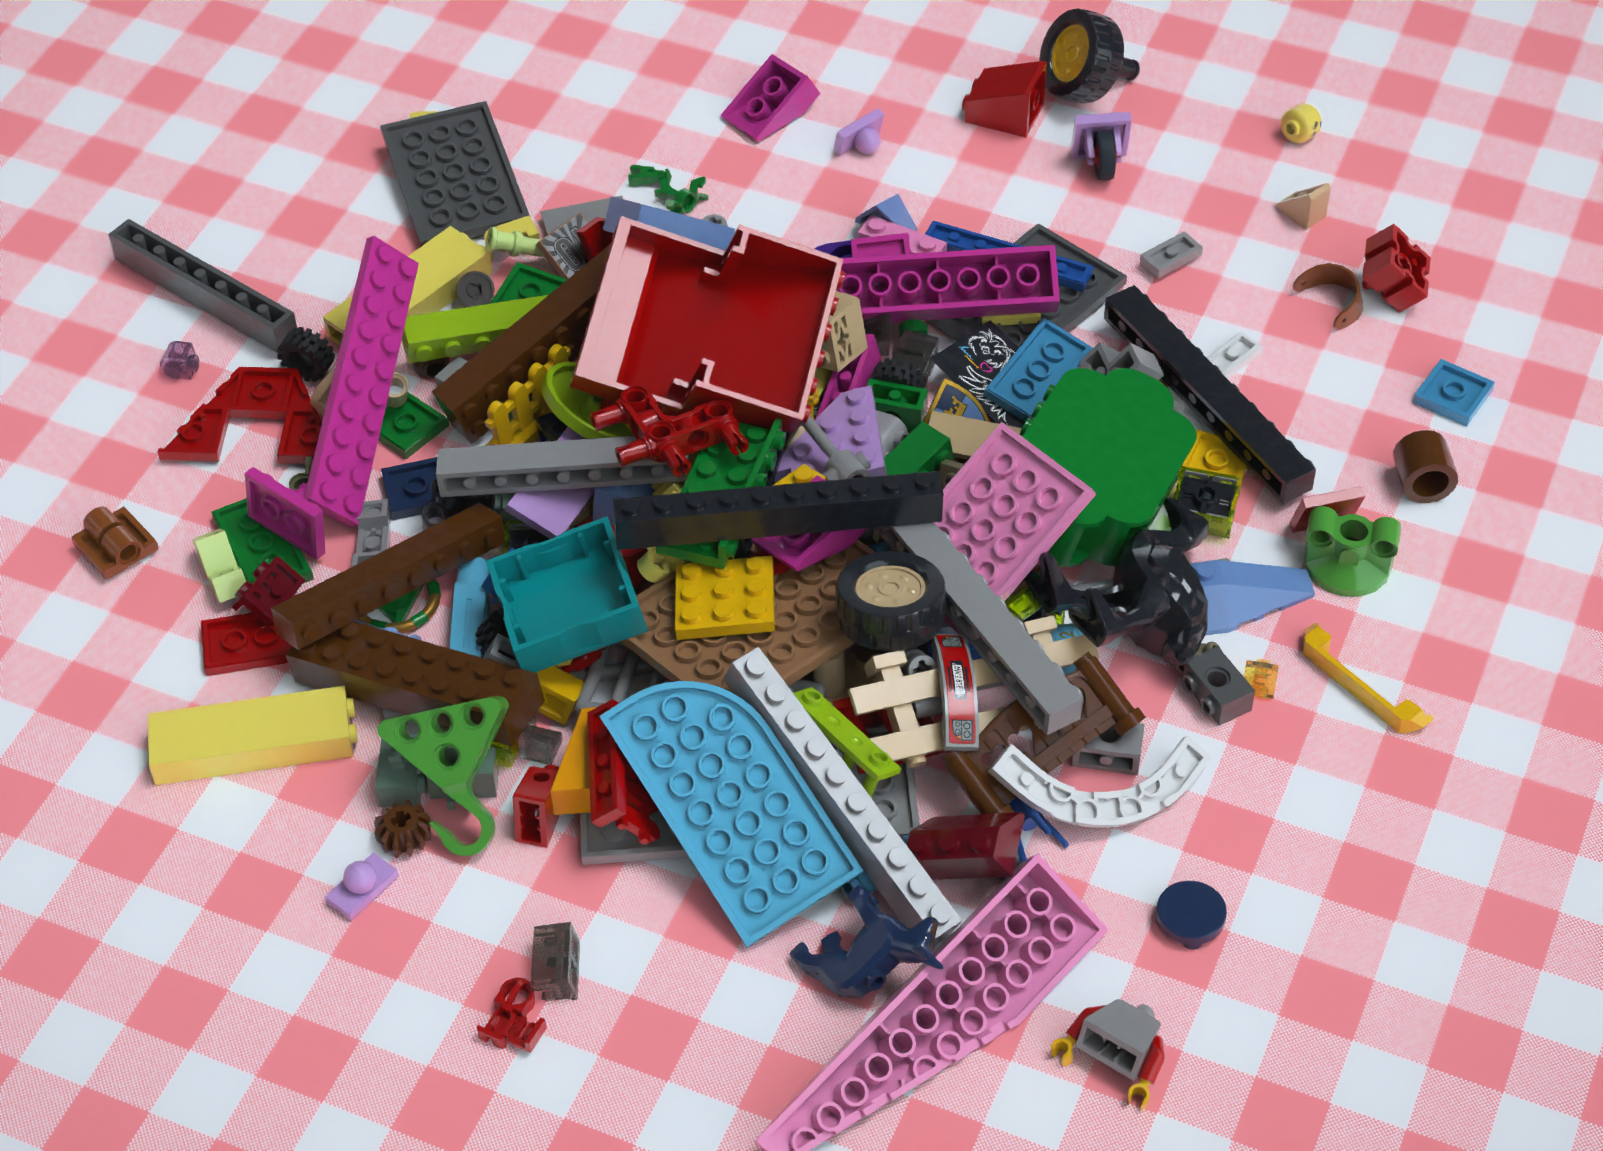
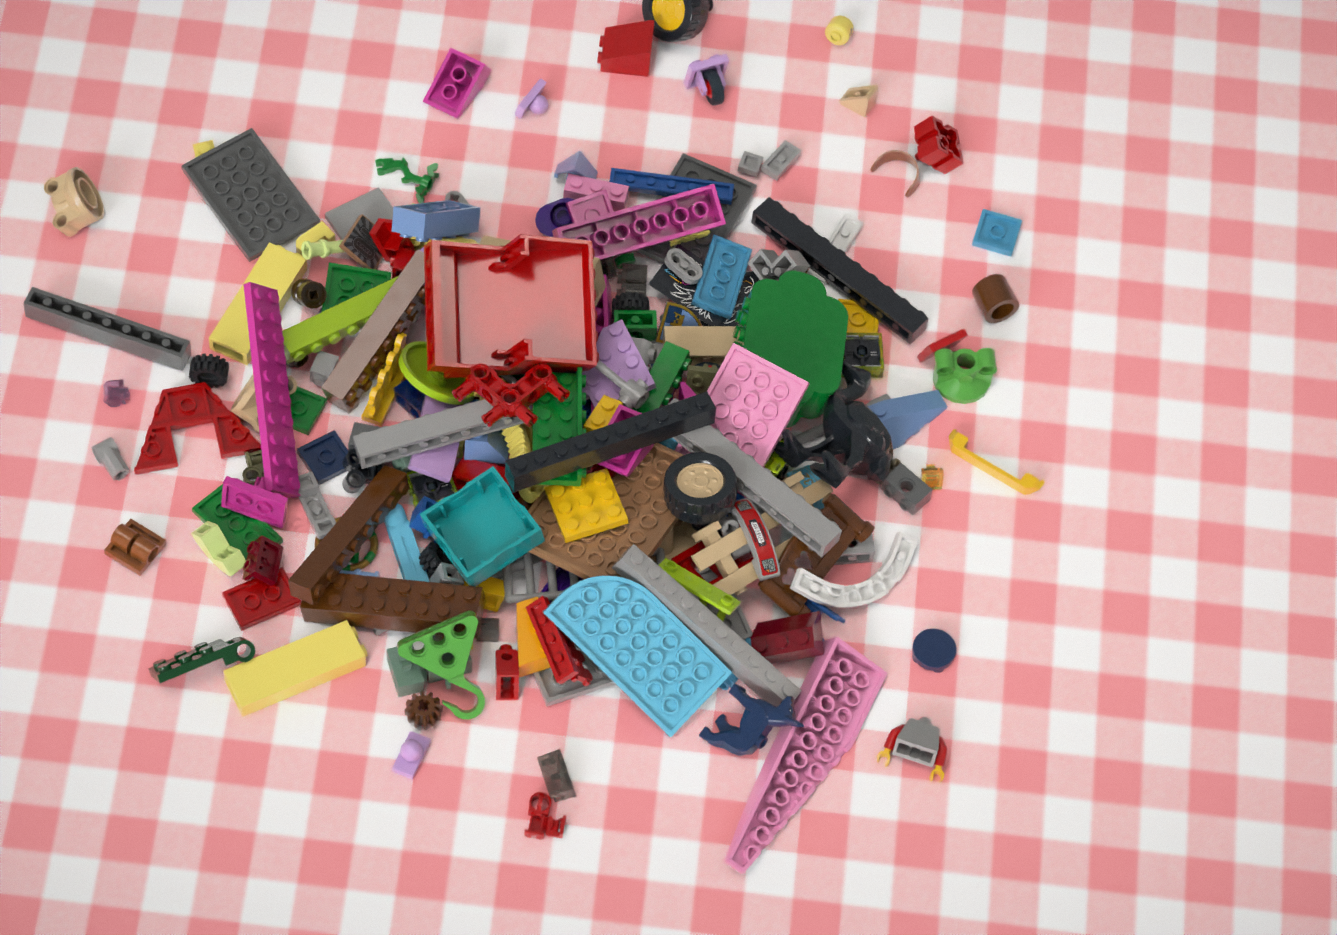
camera: 25 degrees left, 10 degrees up
(135, 432) = (109, 455): none -> light grey piece
(160, 691) = (200, 656): none -> dark green hinge
(233, 141) = (74, 201): none -> tan piece
(988, 348) = (684, 266): none -> light grey plate
(1126, 251) = (750, 163): none -> light grey plate

